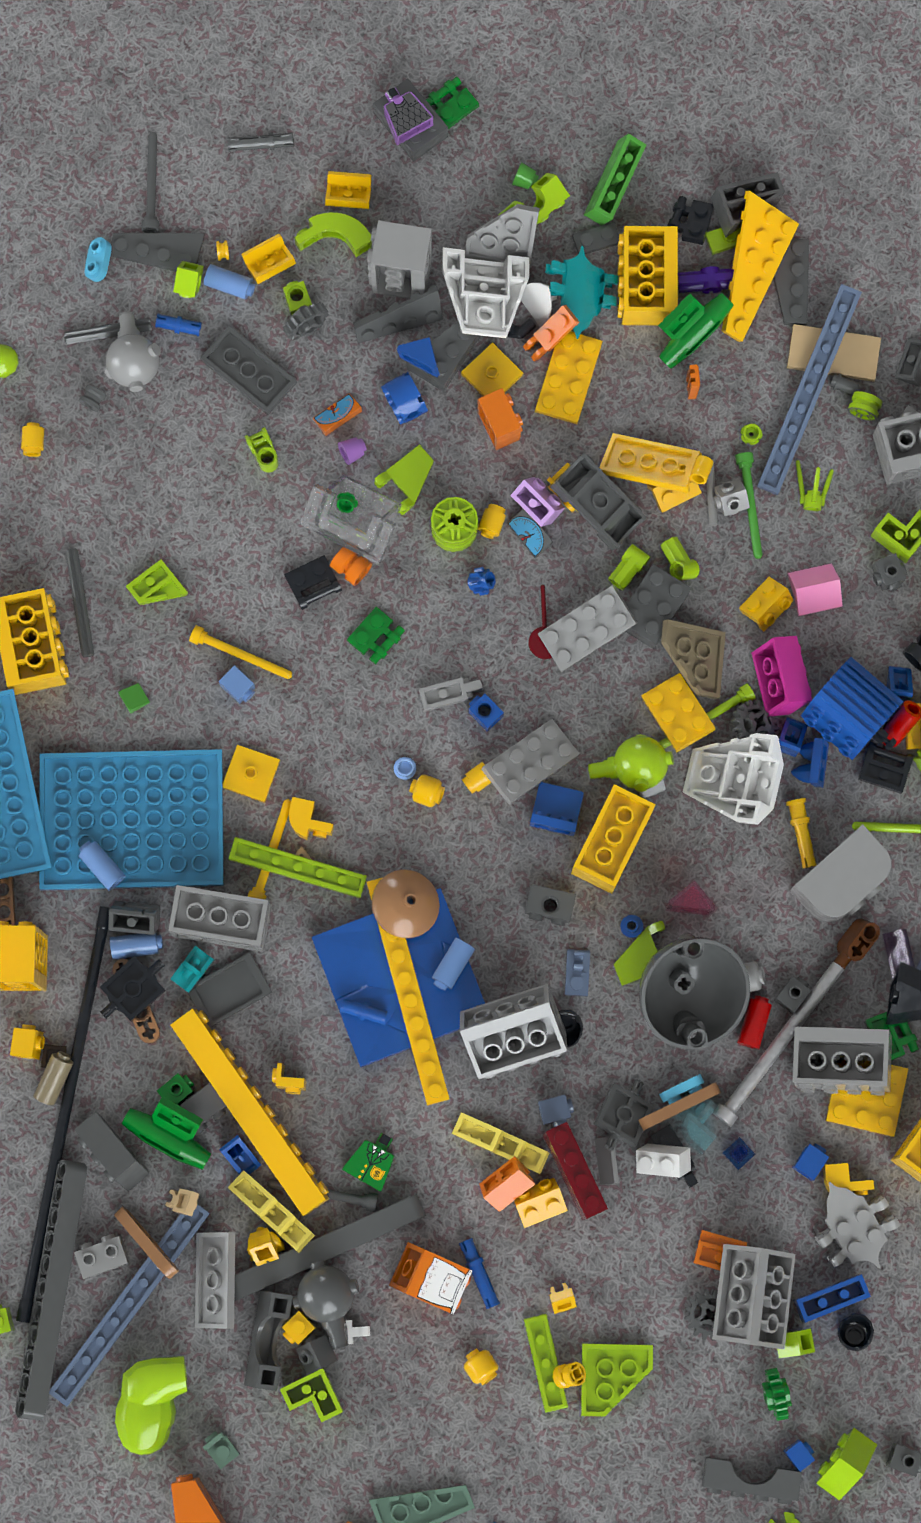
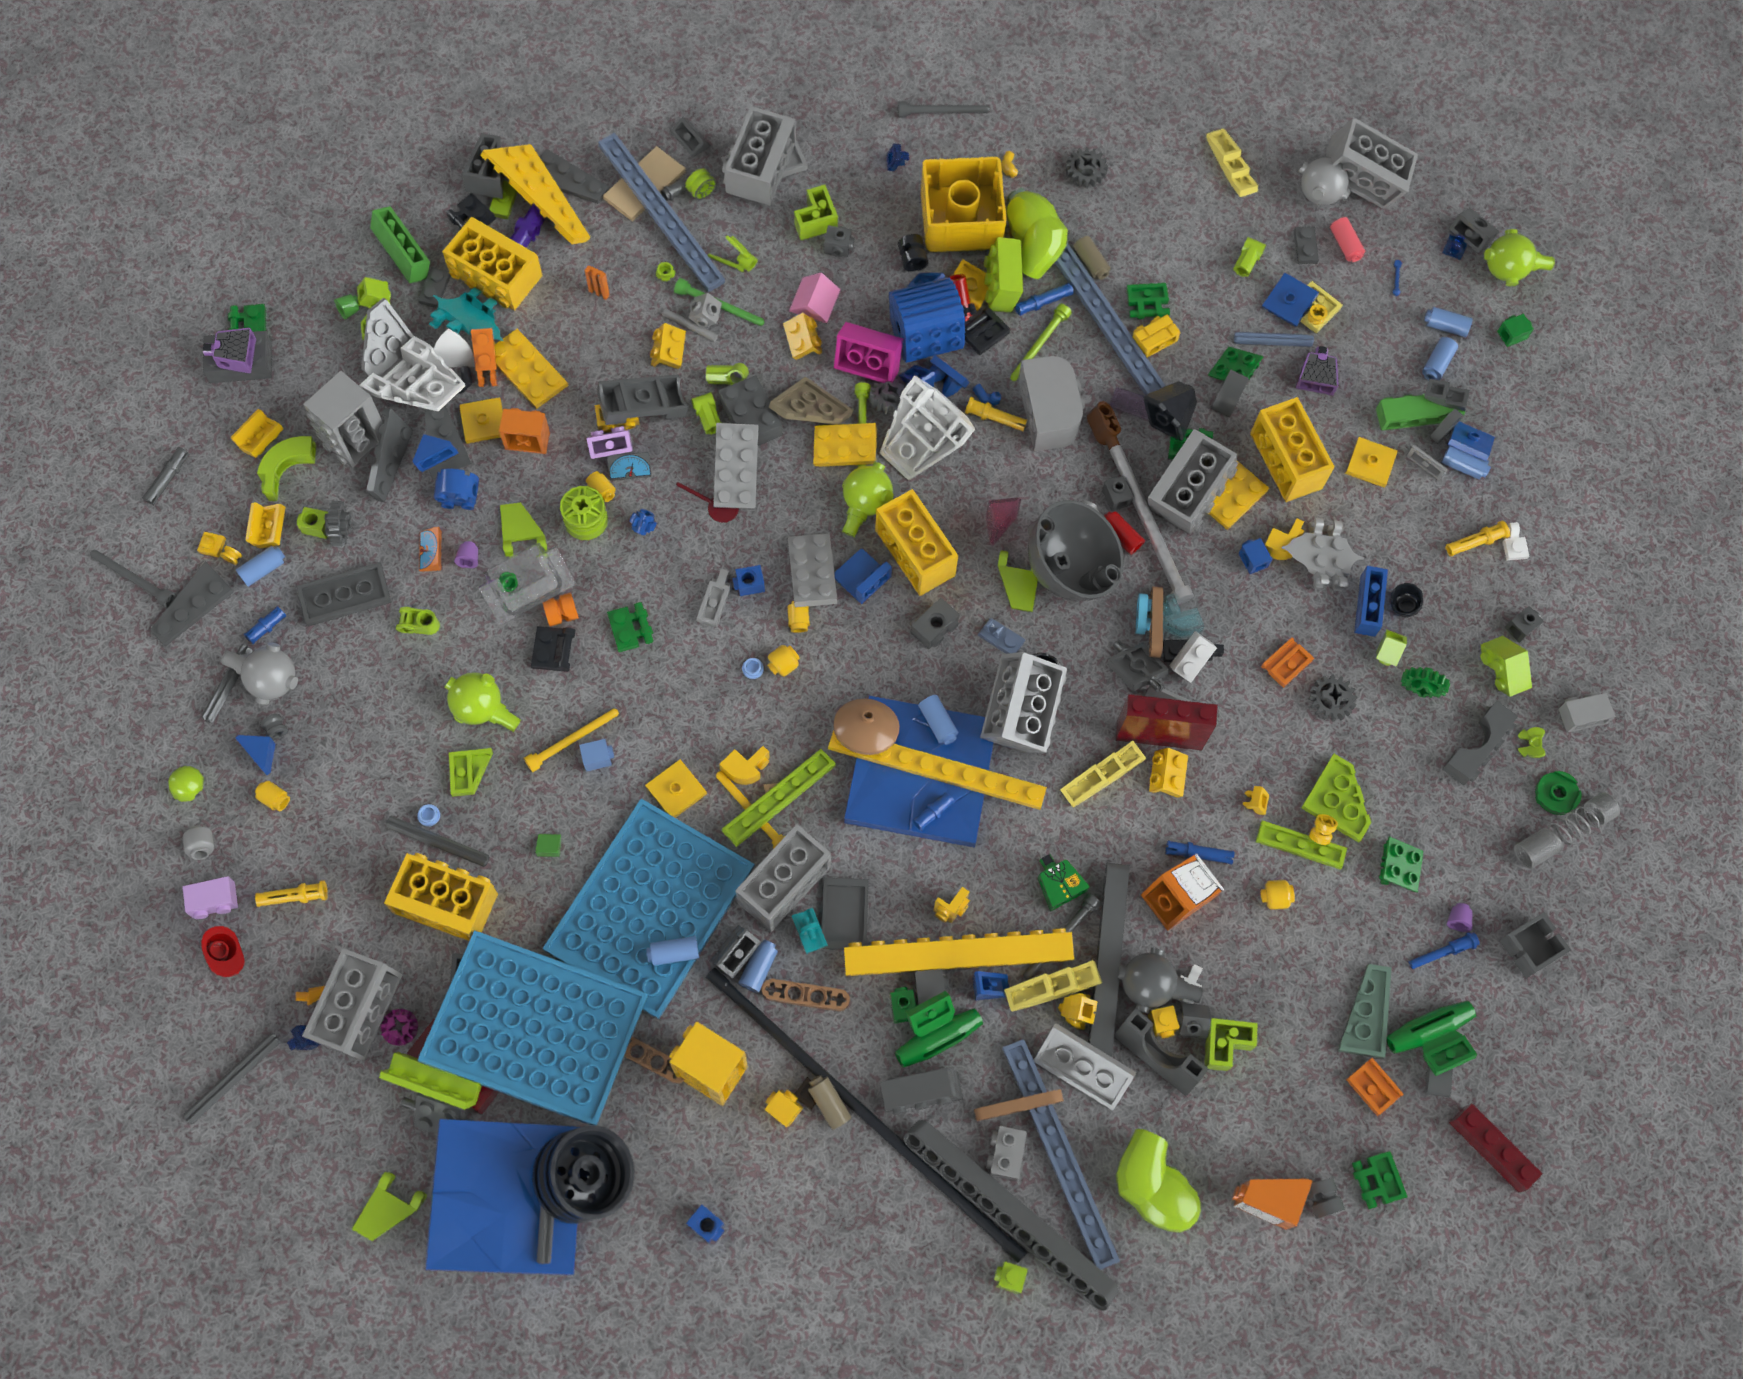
camera: 60 degrees left, 10 degrees down
(63, 401) = (260, 749): none -> blue slope
(97, 580) = (428, 815): none -> light blue plate
(98, 259) = (161, 652): medium azure plate -> none
(132, 988) = (795, 988): black plate -> none
(183, 1201) = (1002, 1053): tan plate -> none
(188, 279) = (234, 593): lime brick -> none
(219, 551) = (477, 699): none -> lime piece
(220, 1449) = (1228, 1149): sand green bracket -> none
(223, 226) = (211, 544): none -> yellow tile
(506, 1184) = (1140, 786): hinge -> none
(555, 1110) = (1102, 716): sand blue brick -> none
(582, 1467) = (1401, 864): none -> green hinge
(631, 933) = (990, 581): blue plate -> none
(655, 463) = (642, 342): yellow hinge -> none
(691, 326) = (555, 256): green plate -> none
(738, 1153) = (1216, 604): clear blue tile -> none
(753, 1296) = (1341, 651): light grey brick -> none
(800, 1454) = (1480, 696): blue plate -> none
(815, 813) = (993, 399): none -> blue arm

